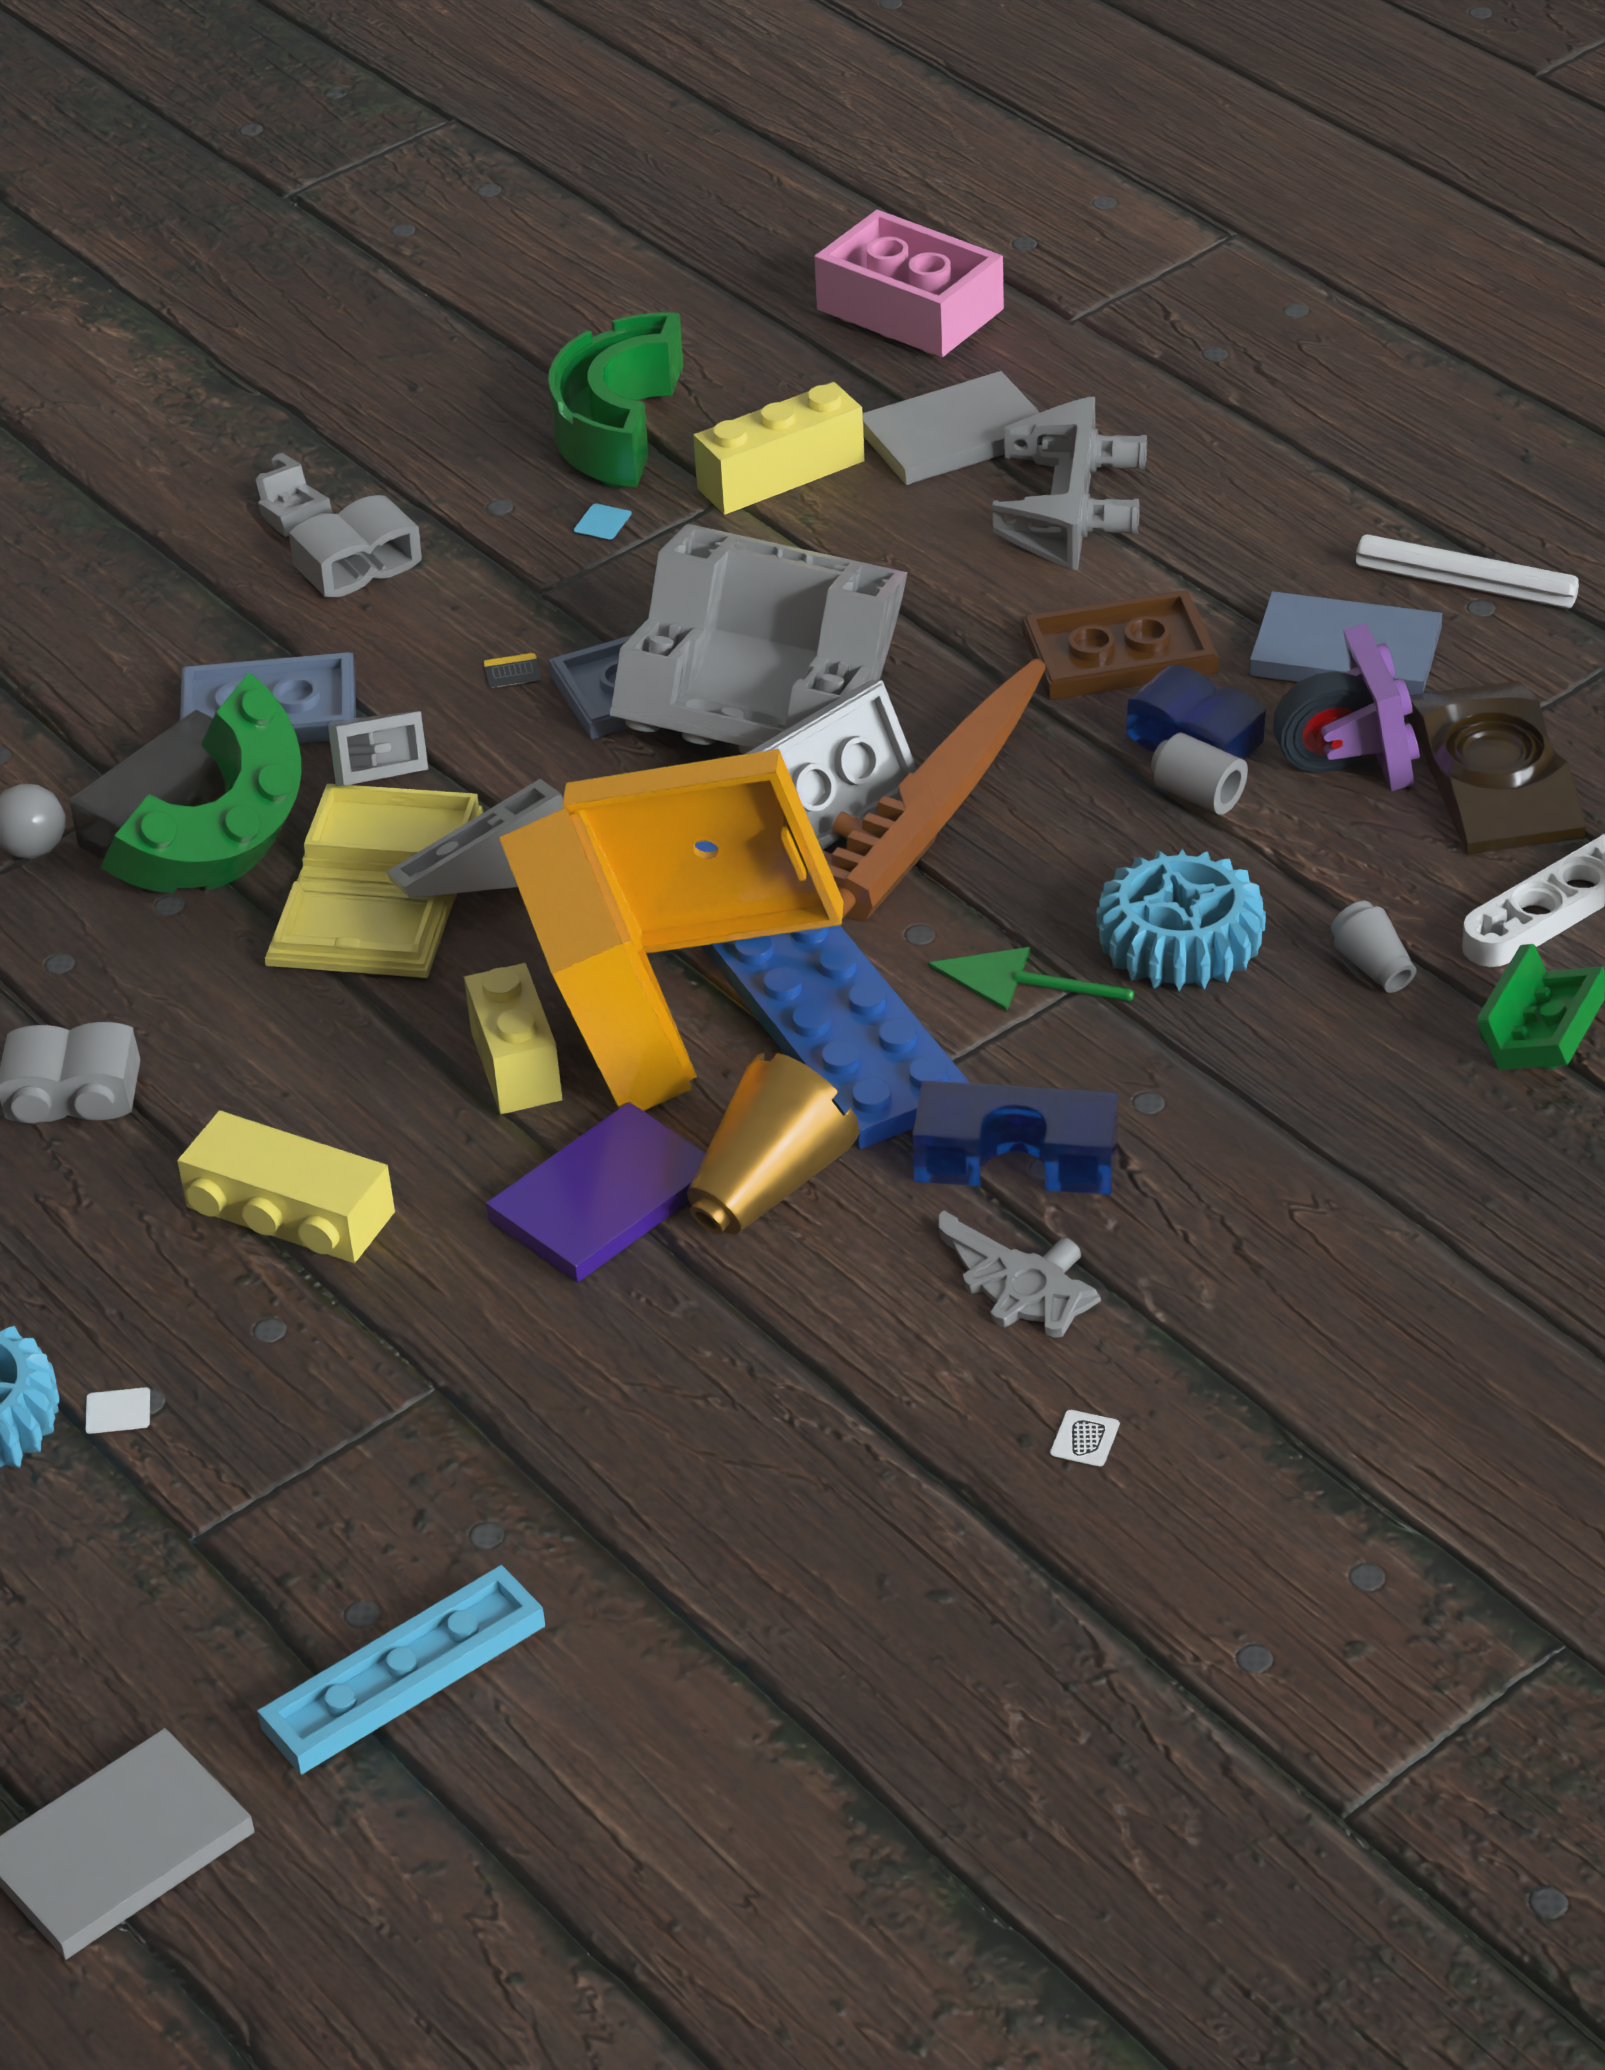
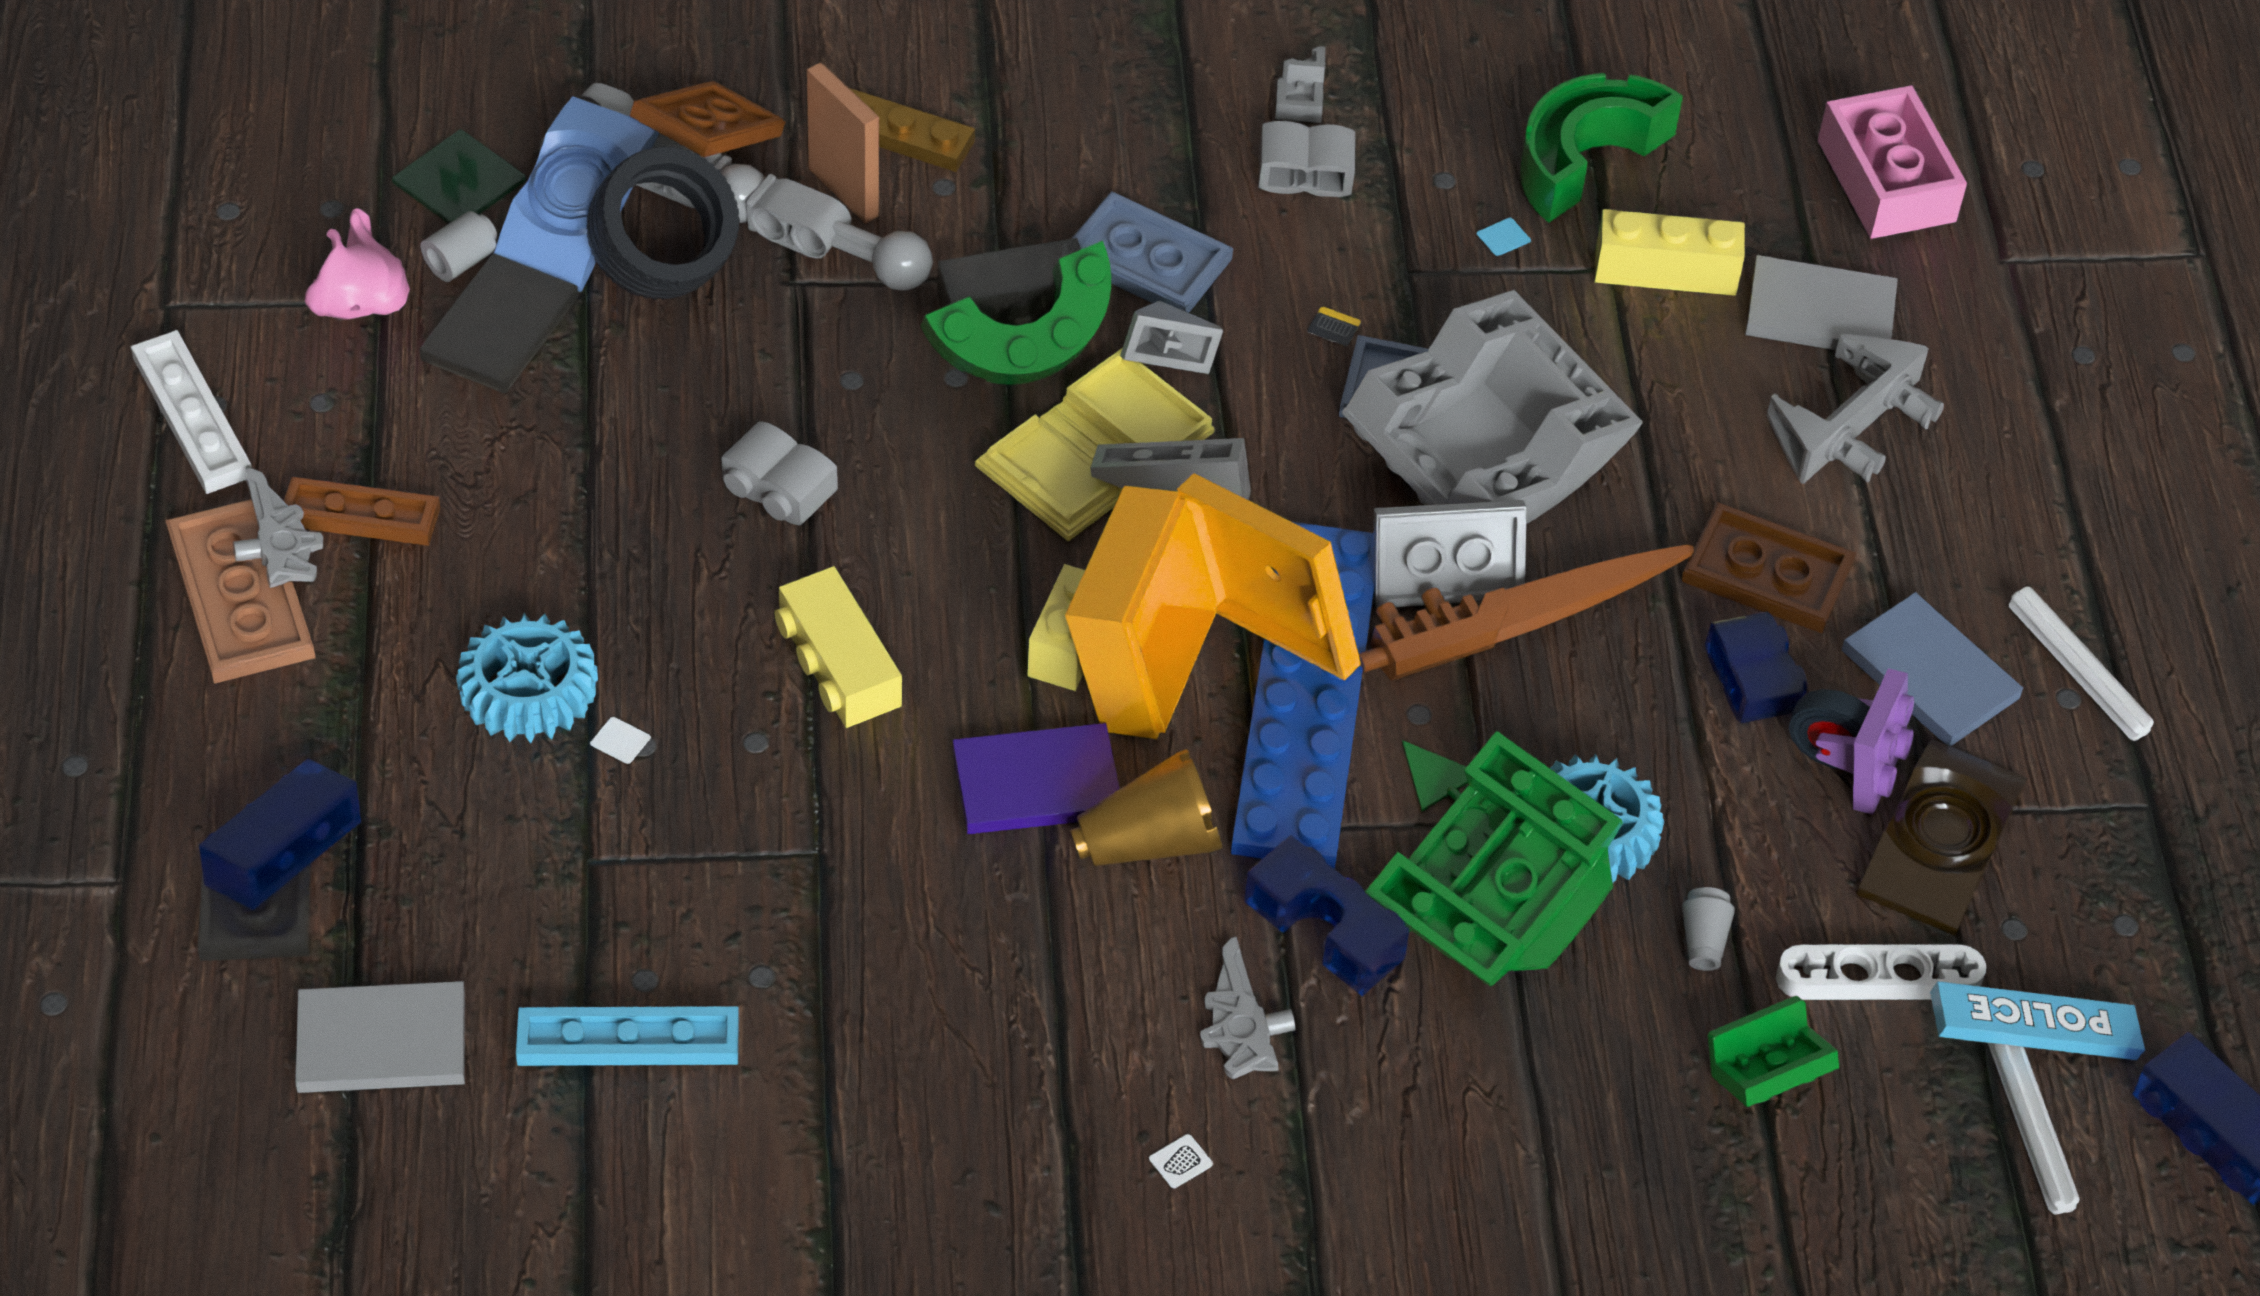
camera: 30 degrees right, 10 degrees up
(1151, 986) = (1505, 867): none -> green slope
(1199, 773) = (1716, 711): light grey brick -> none

